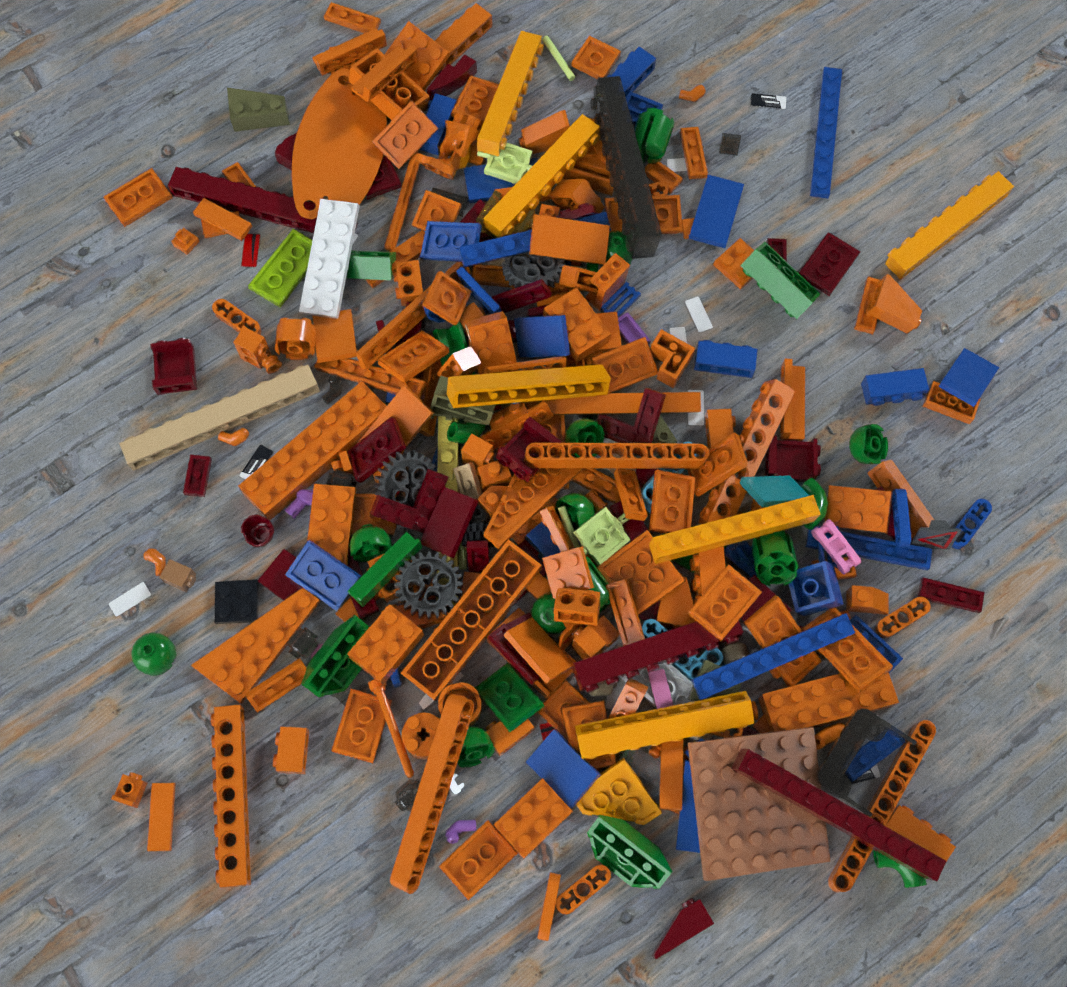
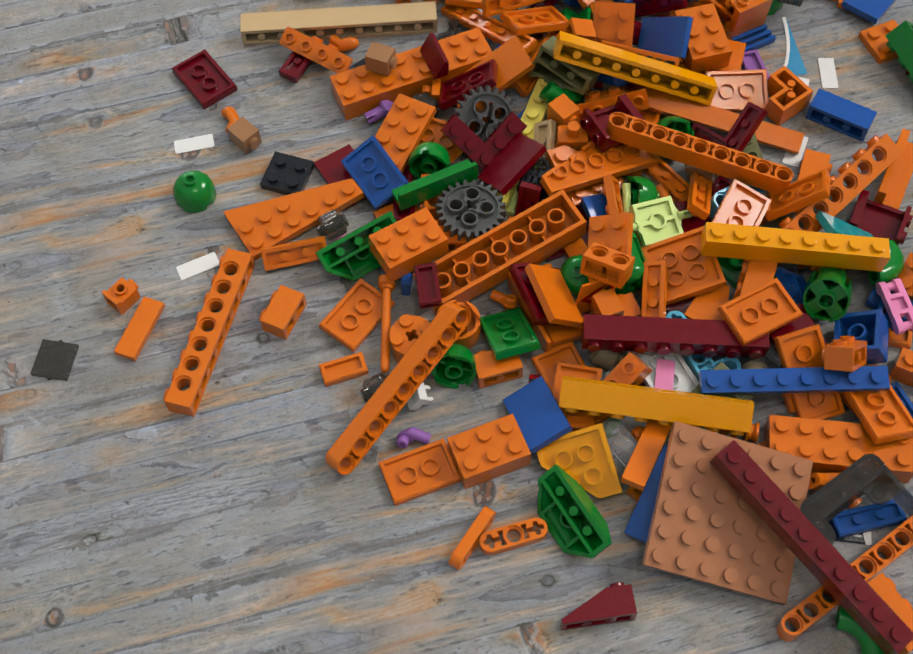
camera: 25 degrees right, 10 degrees down
(92, 879) = (54, 360): none -> clear smoke piece
(110, 524) = (204, 79): none -> dark red tile
(189, 729) = (198, 266): none -> white sticker
(212, 458) = (315, 50): none -> orange bracket
(257, 530) = (331, 120): dark red hair -> none
(283, 454) = (380, 58): none -> medium nougat brick
(334, 433) = (434, 57): none -> dark red slope
(370, 785) = (343, 369): none -> orange tile
(420, 680) = (428, 285): none -> dark red tile
(494, 661) = (507, 301): none -> orange arm
(664, 314) = (793, 59): none -> dark azure sticker
(809, 618) = (844, 354): none -> orange brick

